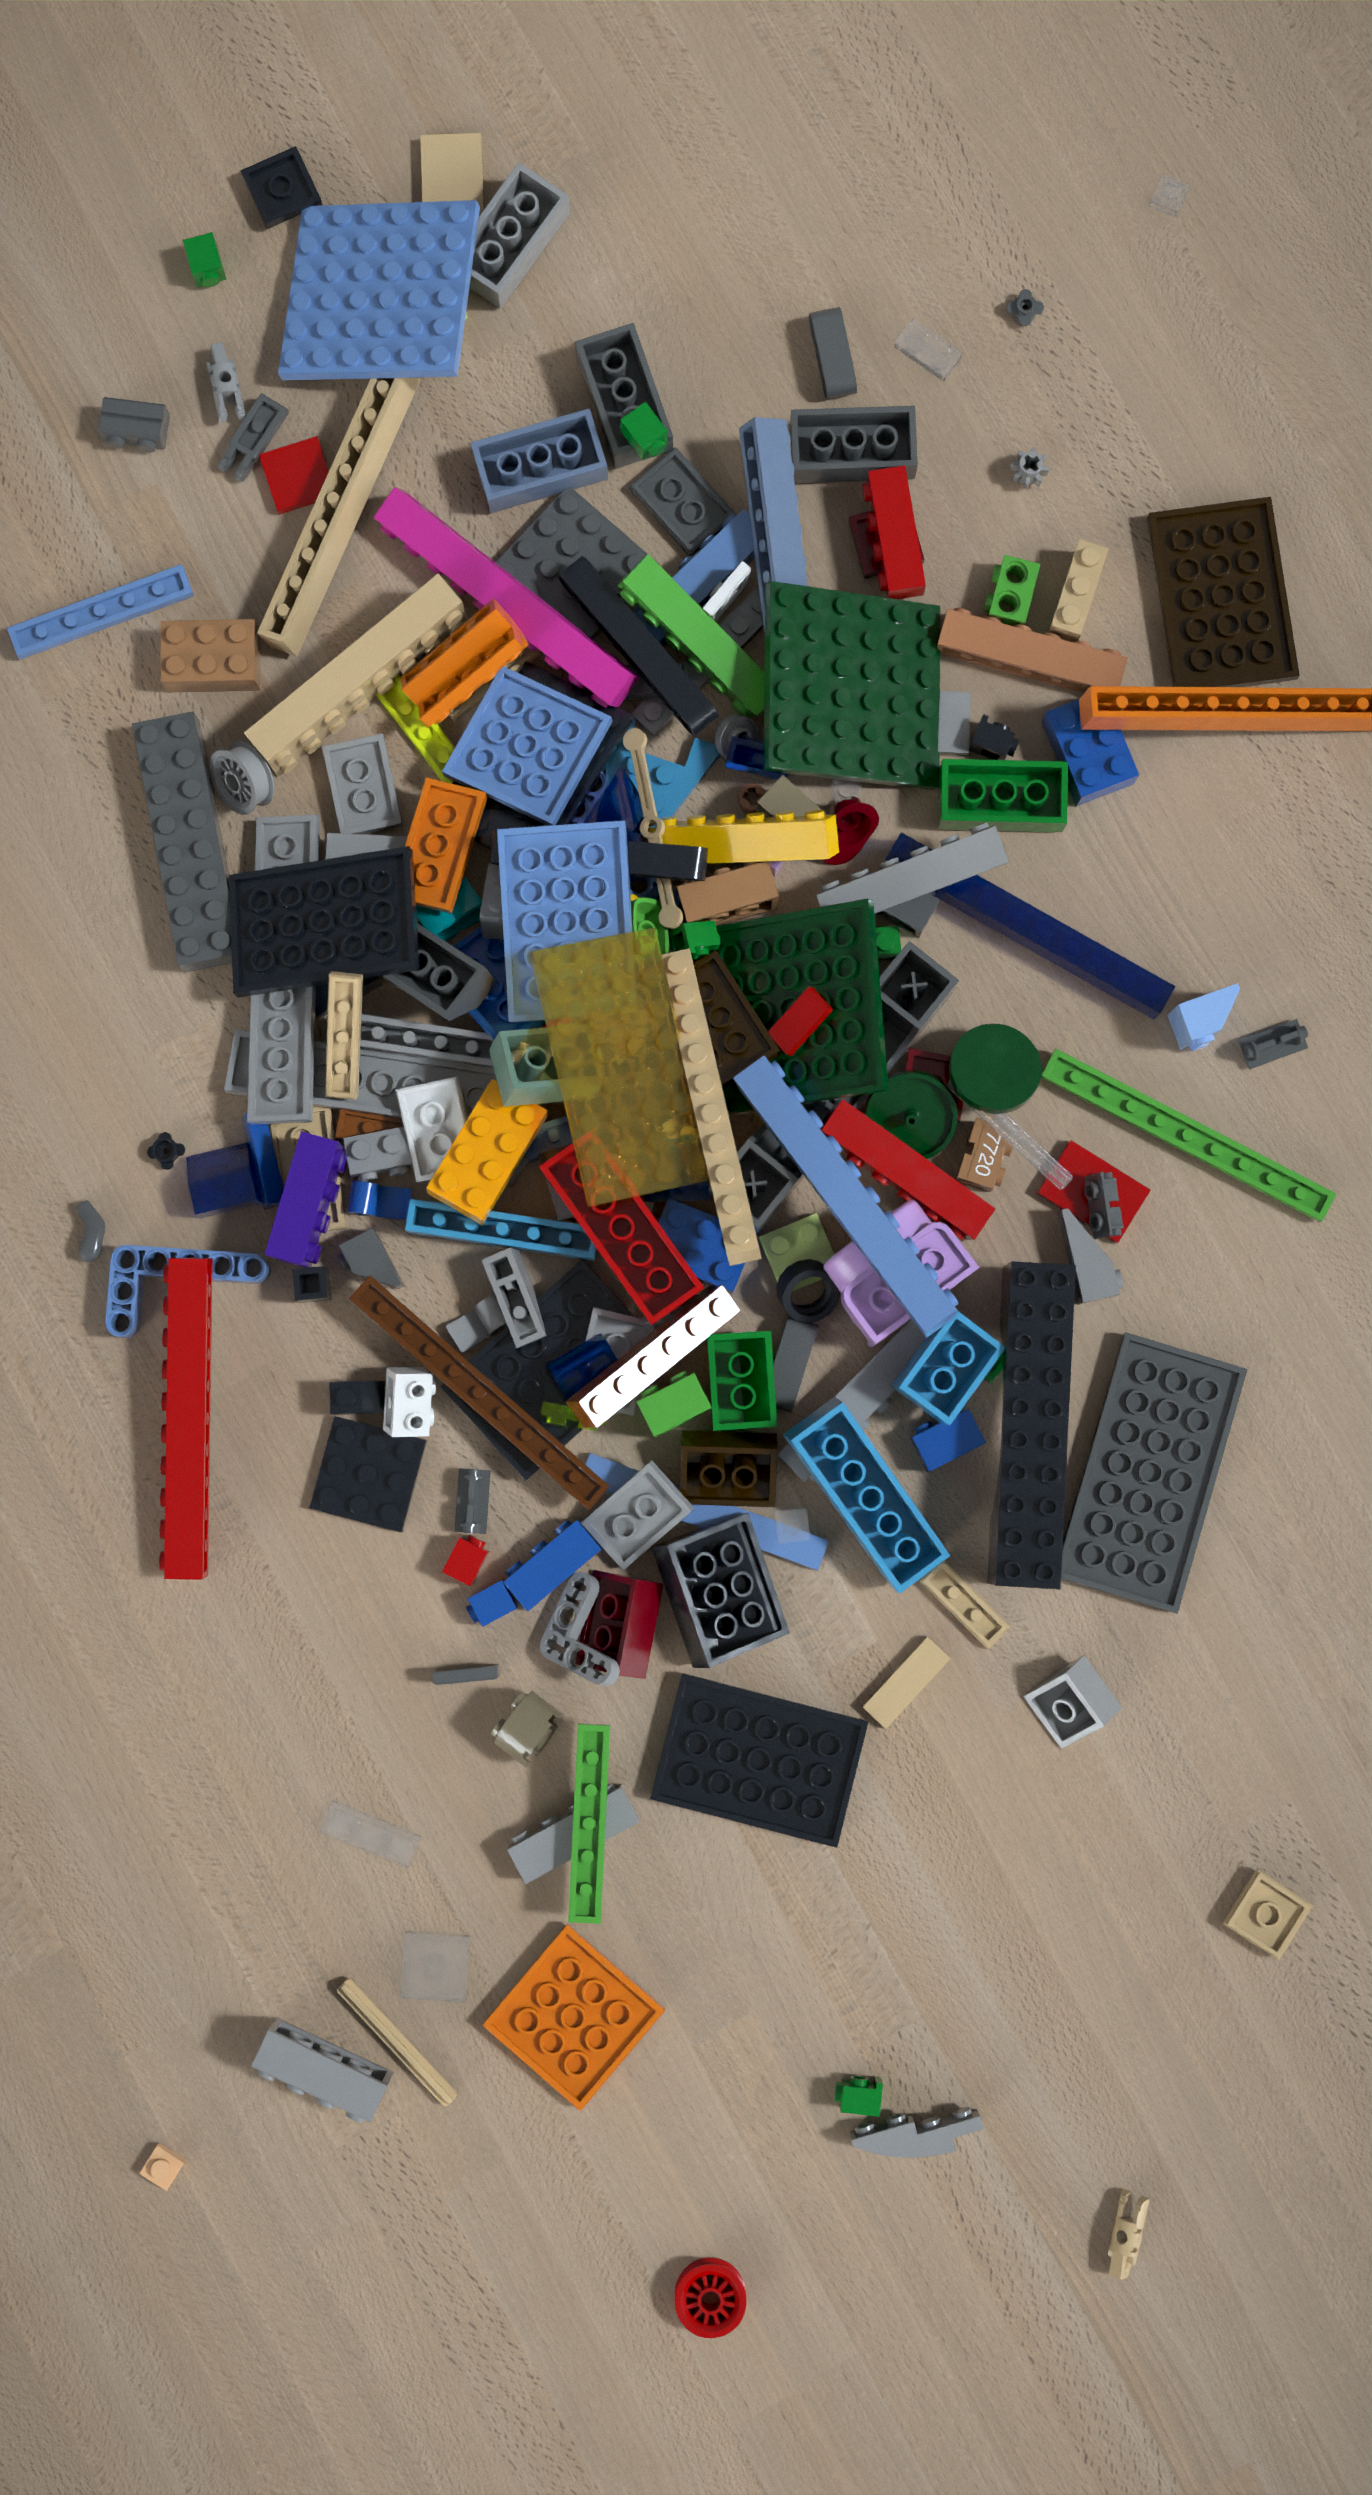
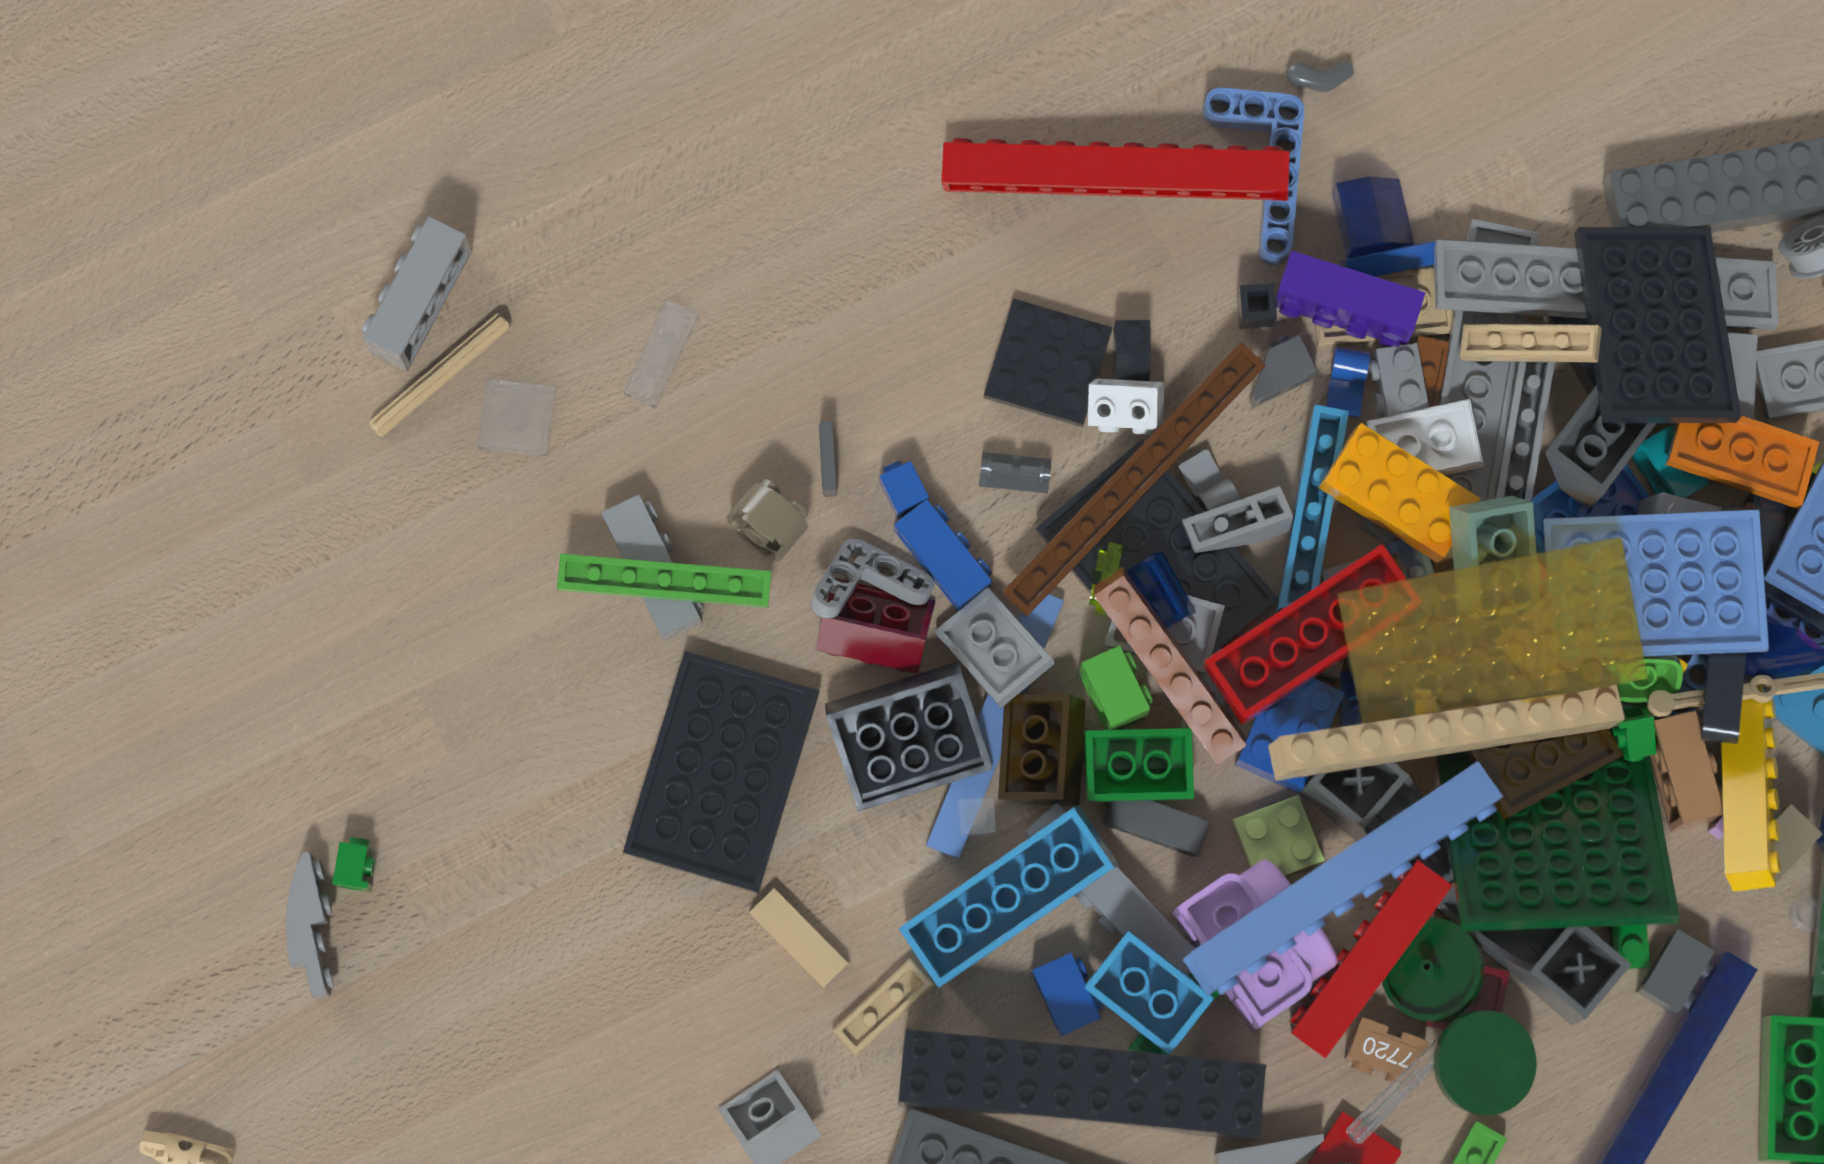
camera: 90 degrees right, 5 degrees down
(162, 2166) = (324, 129): light nougat plate -> none
(175, 1150) = (1406, 147): black plate -> none
(466, 1560) = (951, 463): red brick -> none
(573, 2017) = (456, 561): orange plate -> none
(704, 2327) = (128, 674): red wheel -> none
(744, 804) = (1805, 798): nougat bush -> none
(800, 1021) = (1541, 840): red tile -> none
(817, 1310) = (1212, 845): black tyre -> none
(855, 825) = (1760, 913): dark red piece -> none
(923, 872) = (1710, 988): light grey brick -> none

